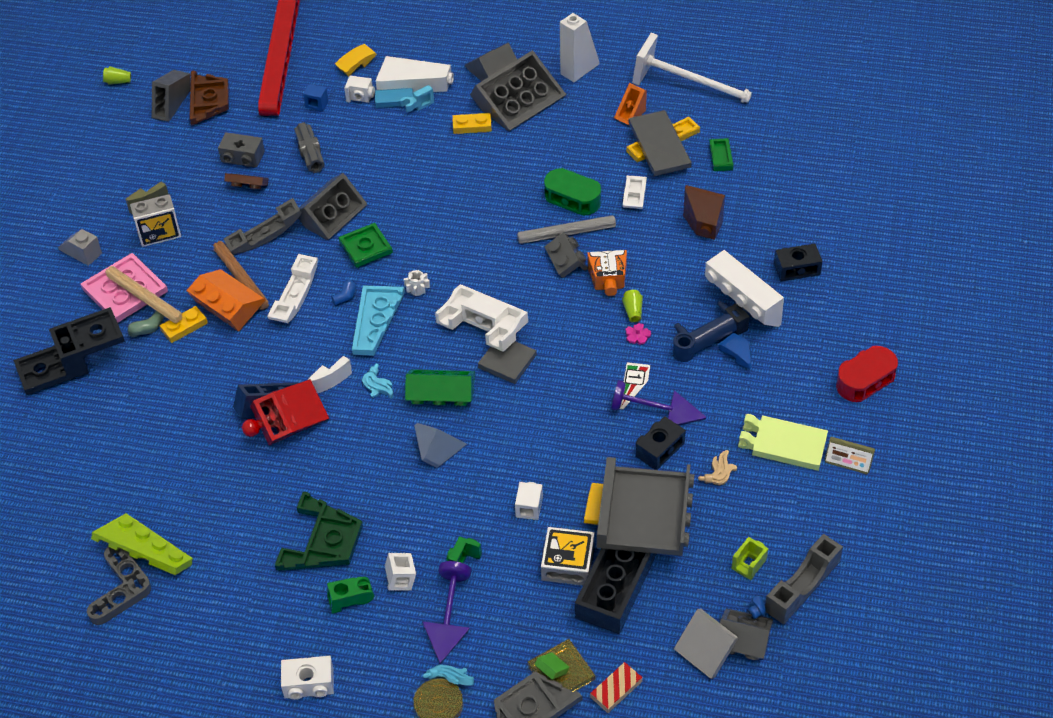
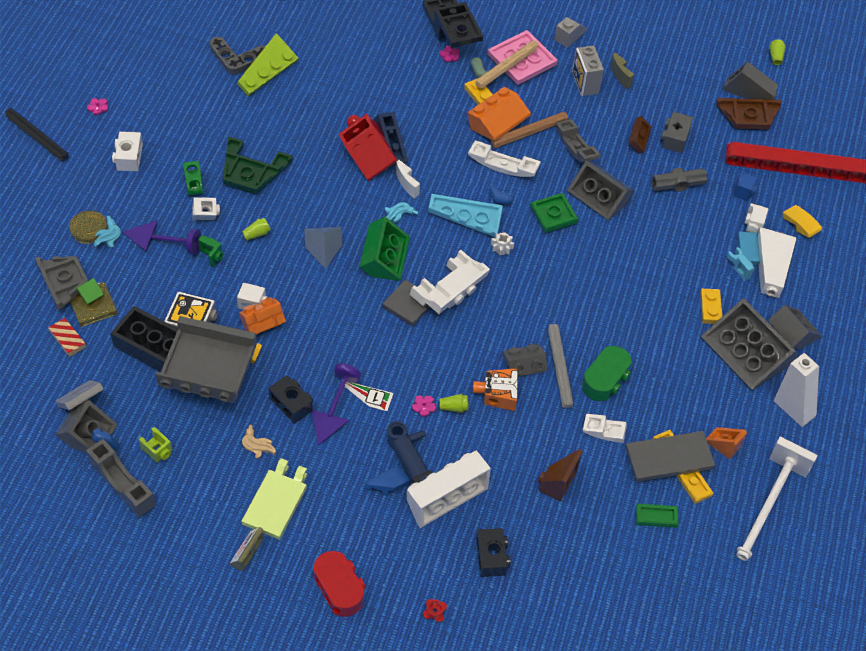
camera: 90 degrees right, 5 degrees up
(114, 361) = (450, 54): none -> dark pink plant
(421, 510) = (256, 229): none -> lime cone
(557, 482) = (262, 316): none -> orange brick
(868, 301) = (435, 604): none -> red plate

